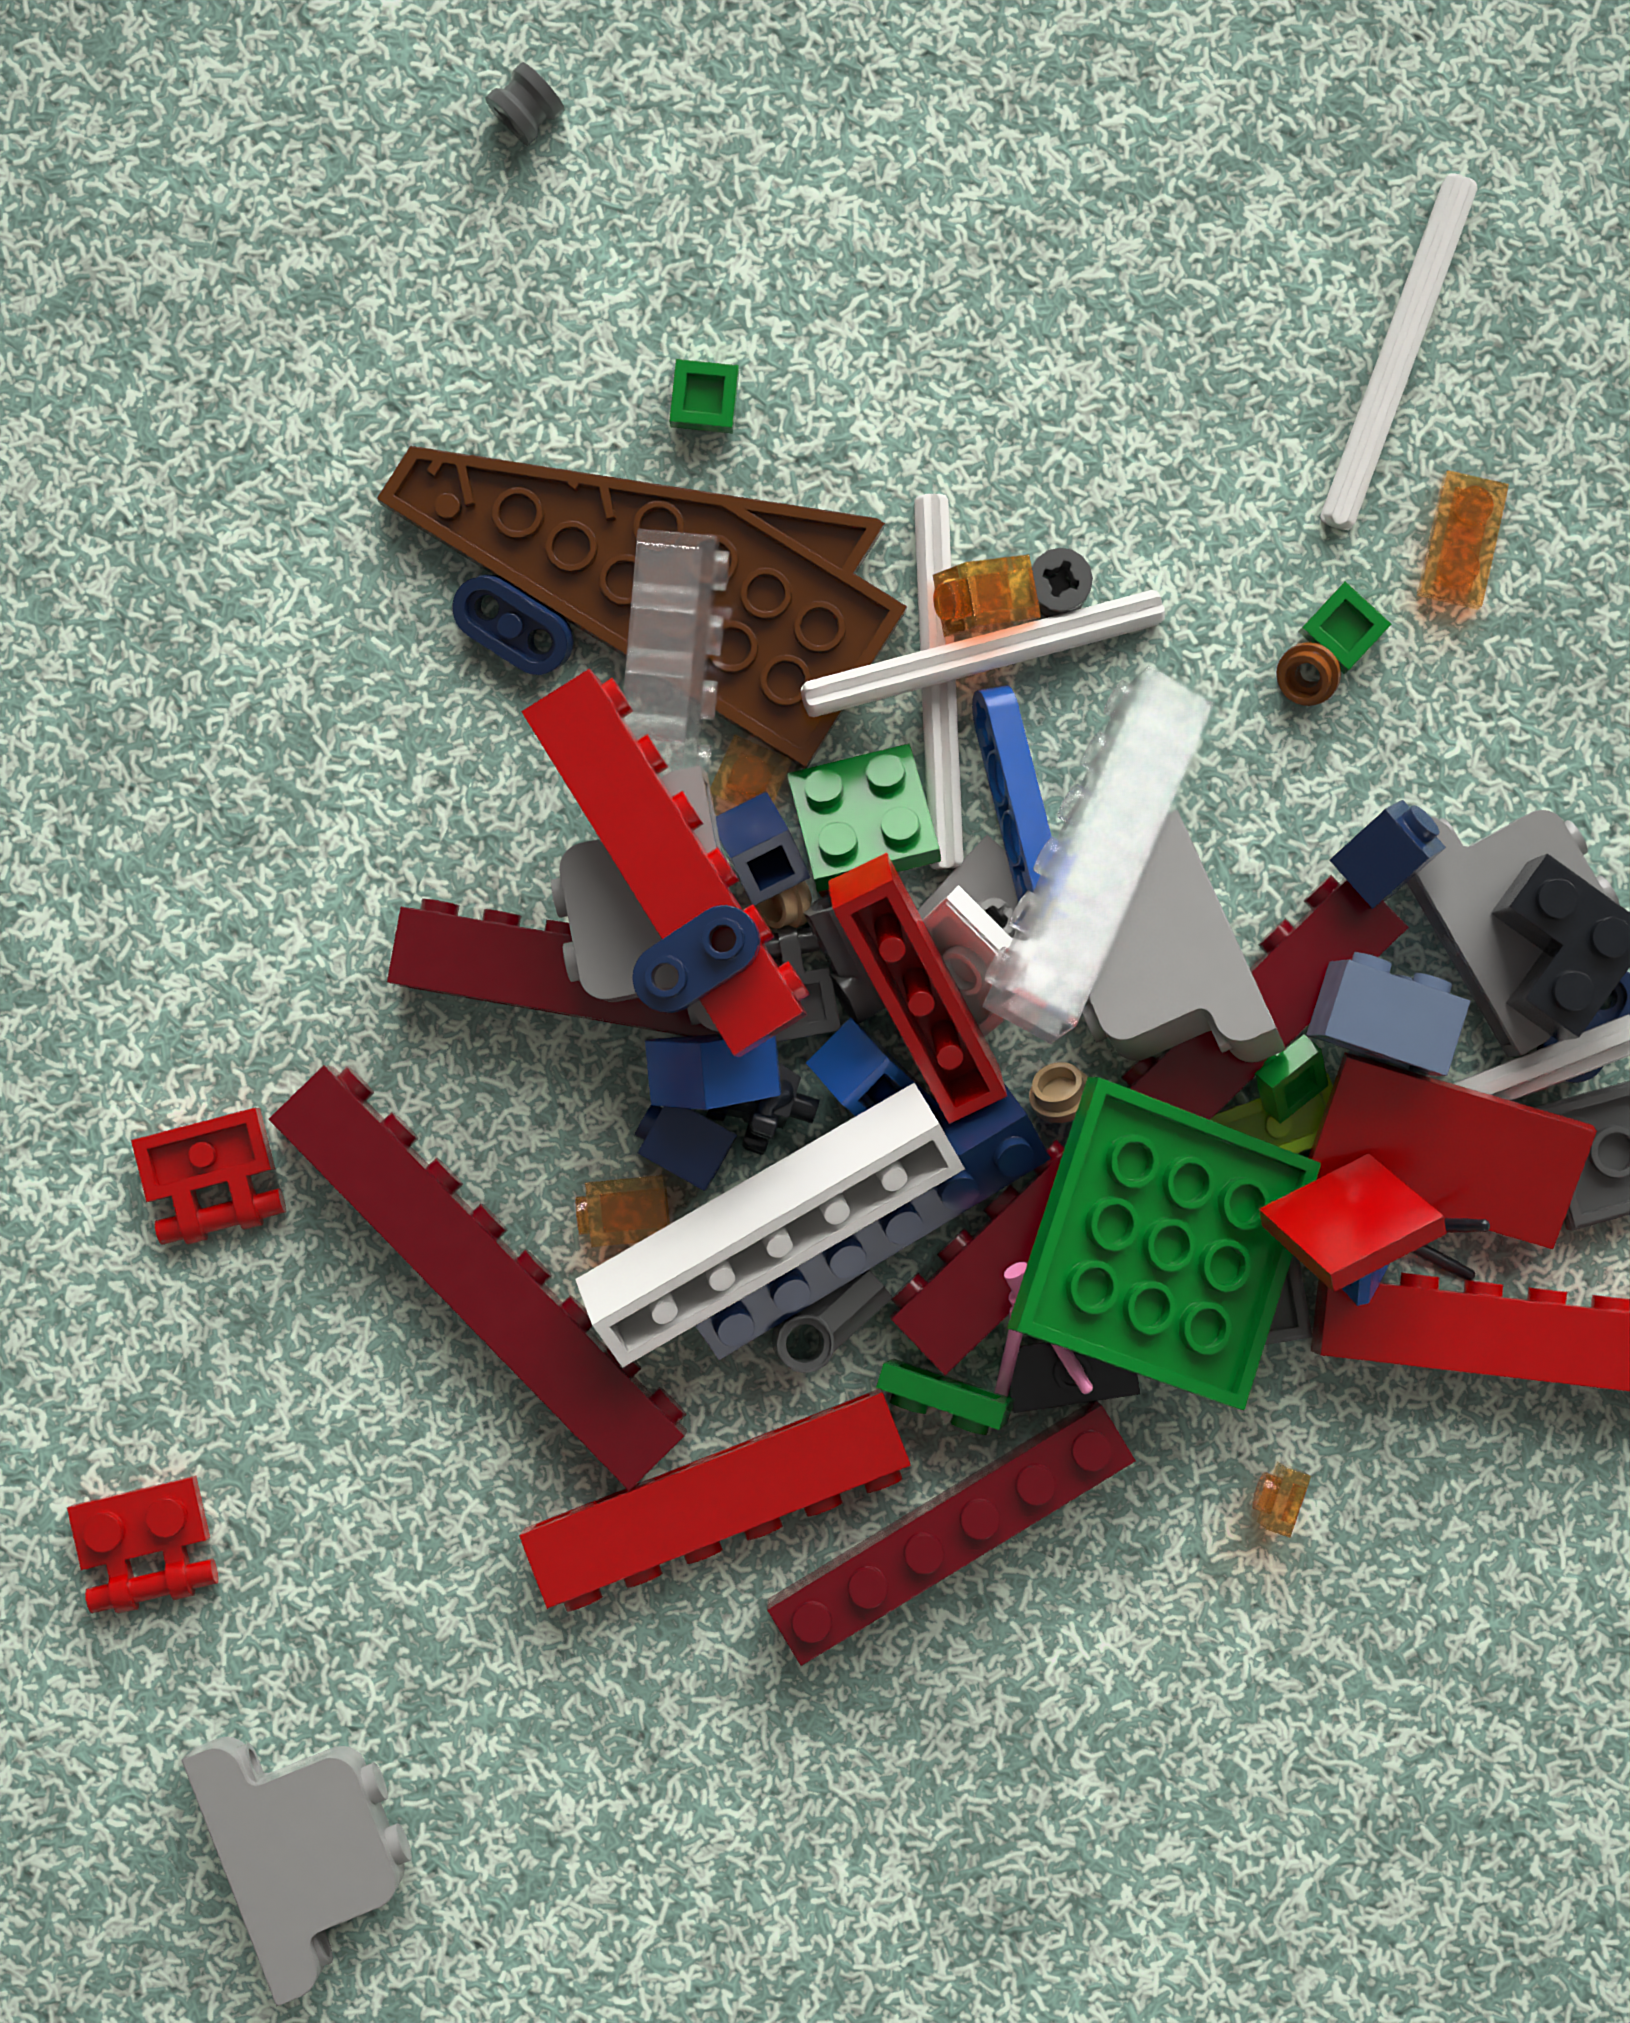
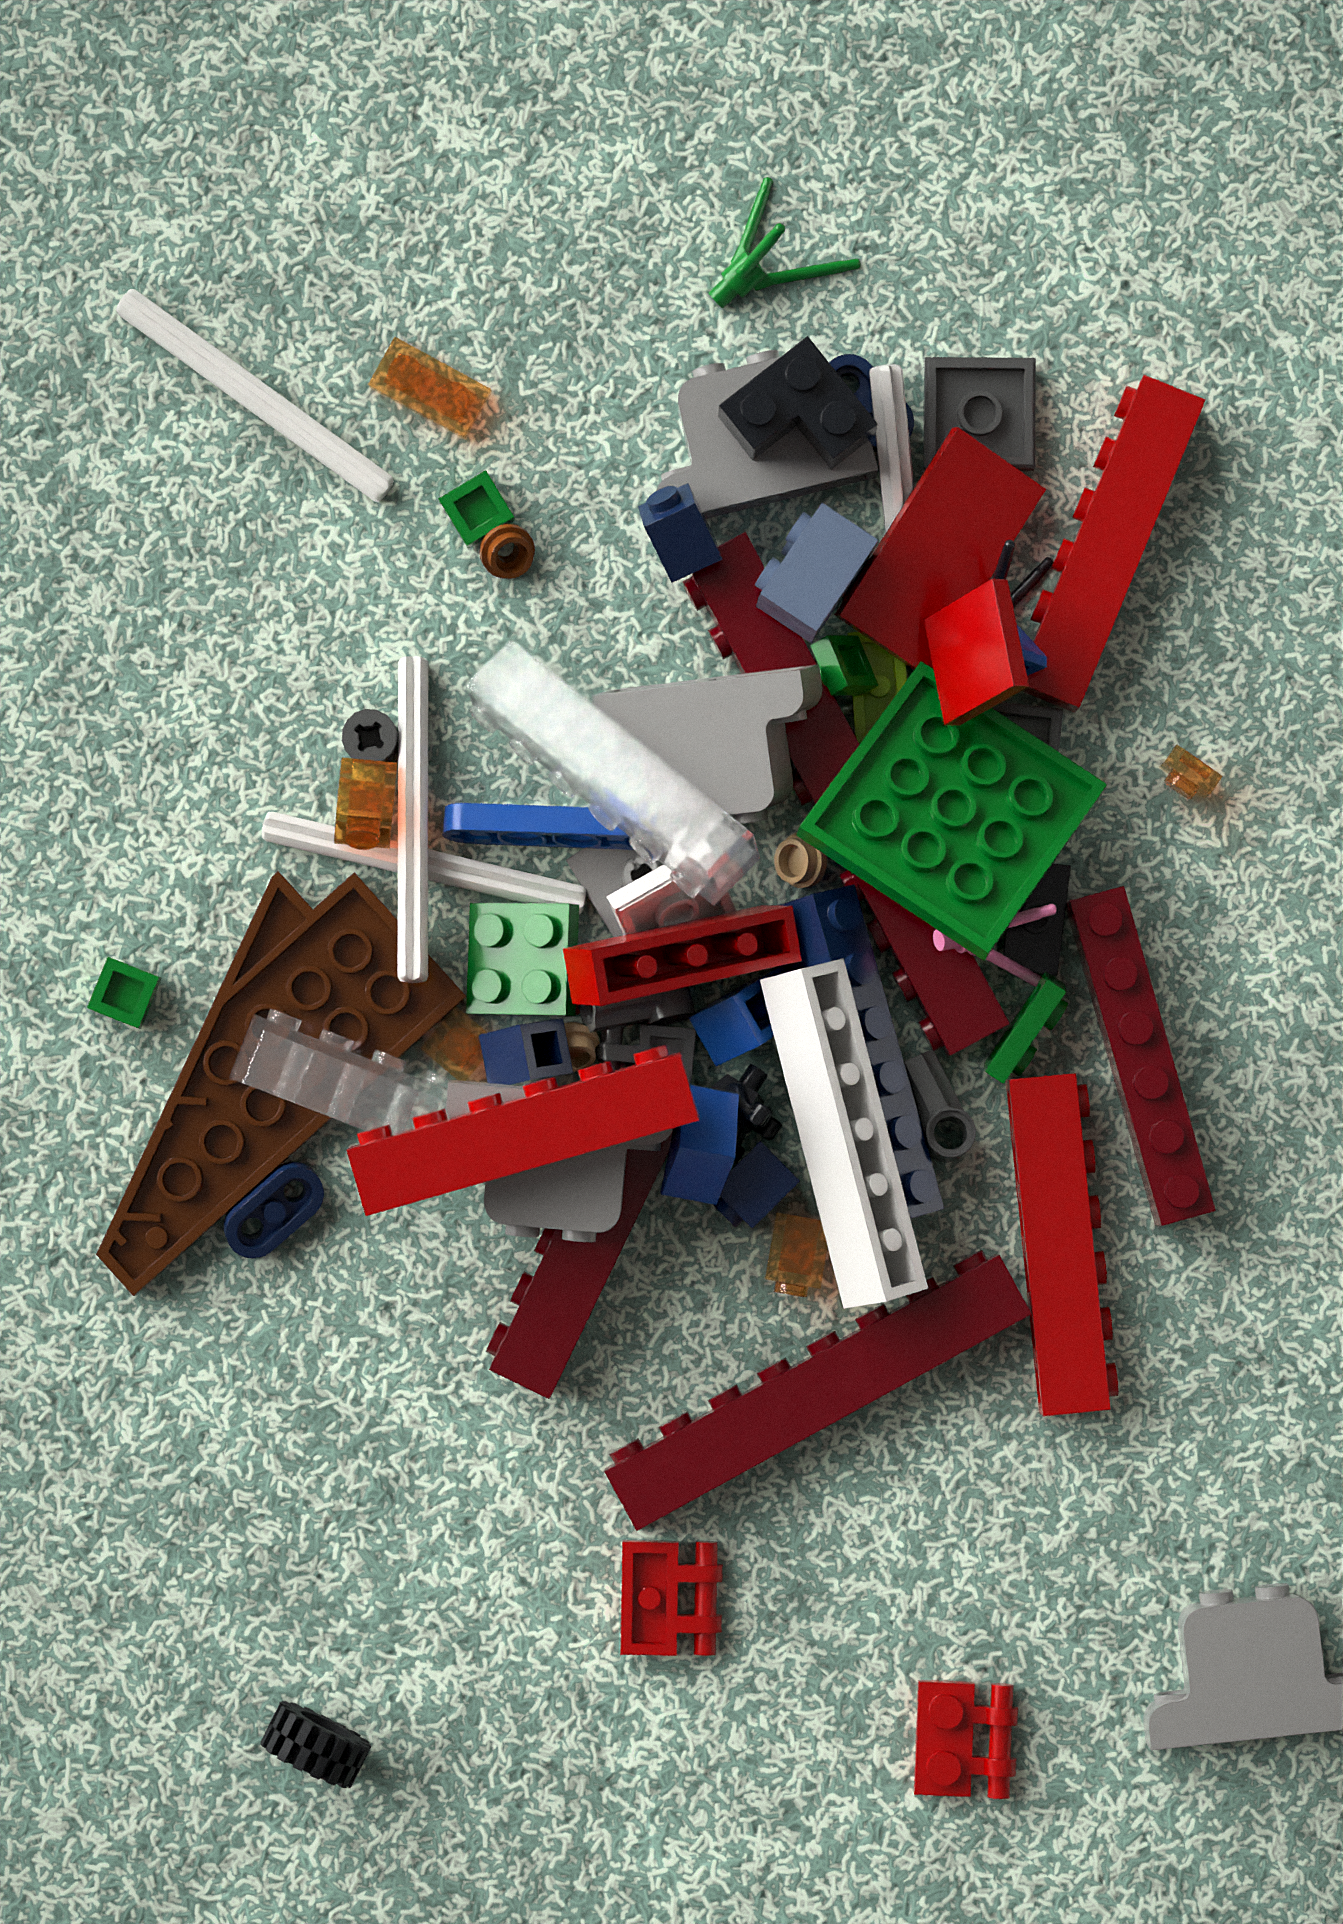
camera: 70 degrees left, 0 degrees up
(697, 962) = (613, 1128): dark blue plate -> none

